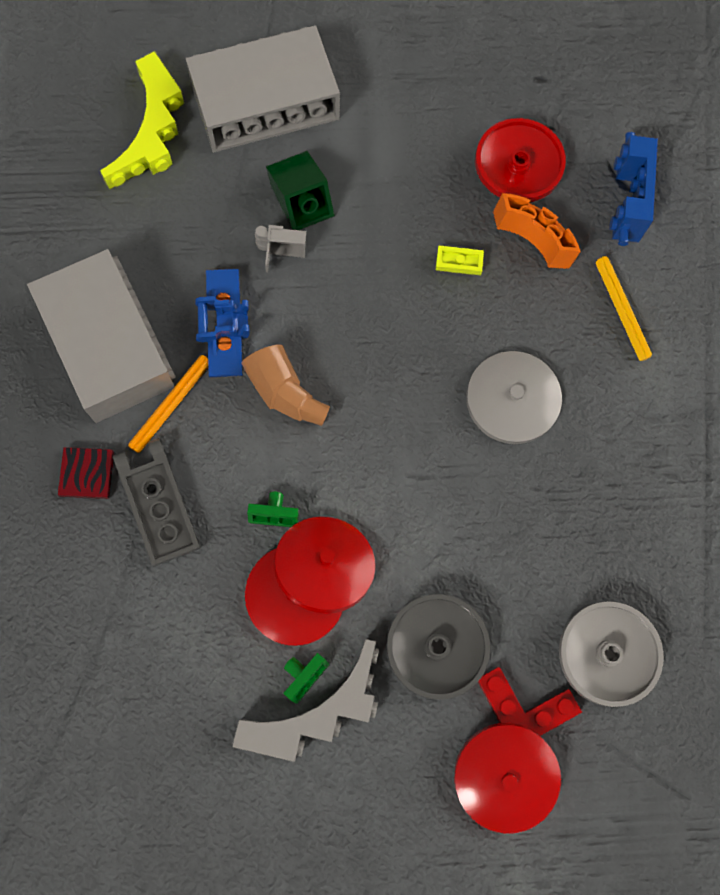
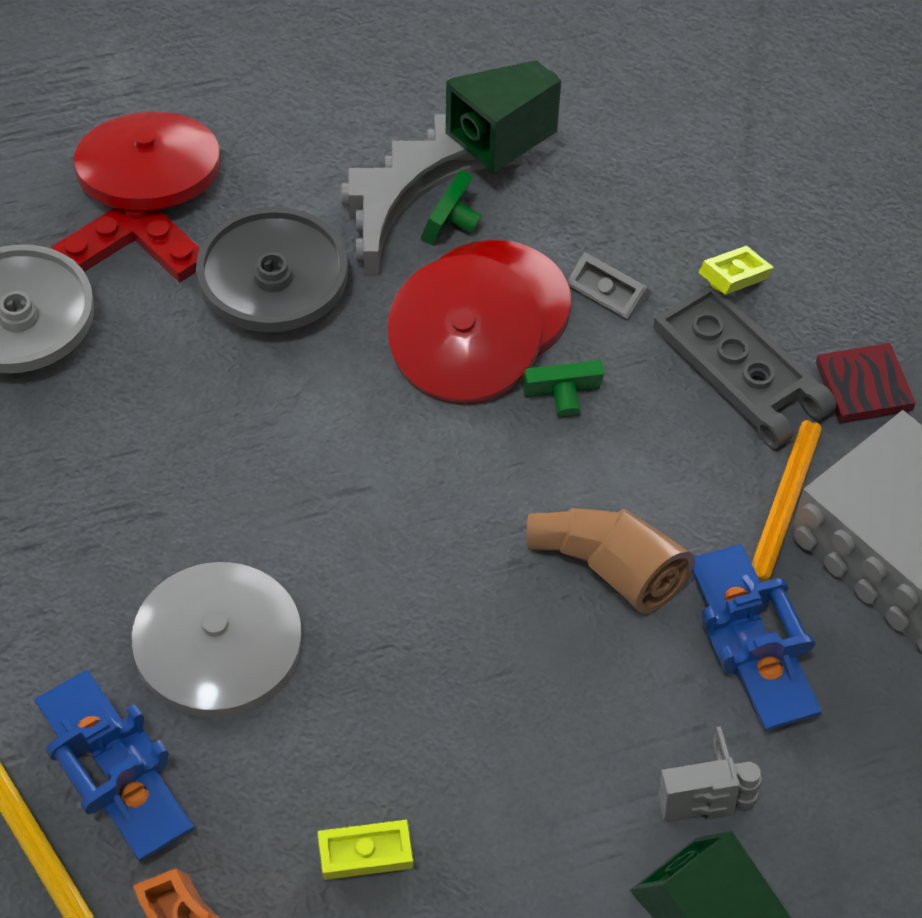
camera: 170 degrees right, 20 degrees down
(132, 571) = (735, 270): none -> neon yellow plate
(217, 590) = (608, 286): none -> light grey slope
(248, 725) = (503, 111): none -> dark green slope
(573, 337) = (126, 756): none -> blue piece

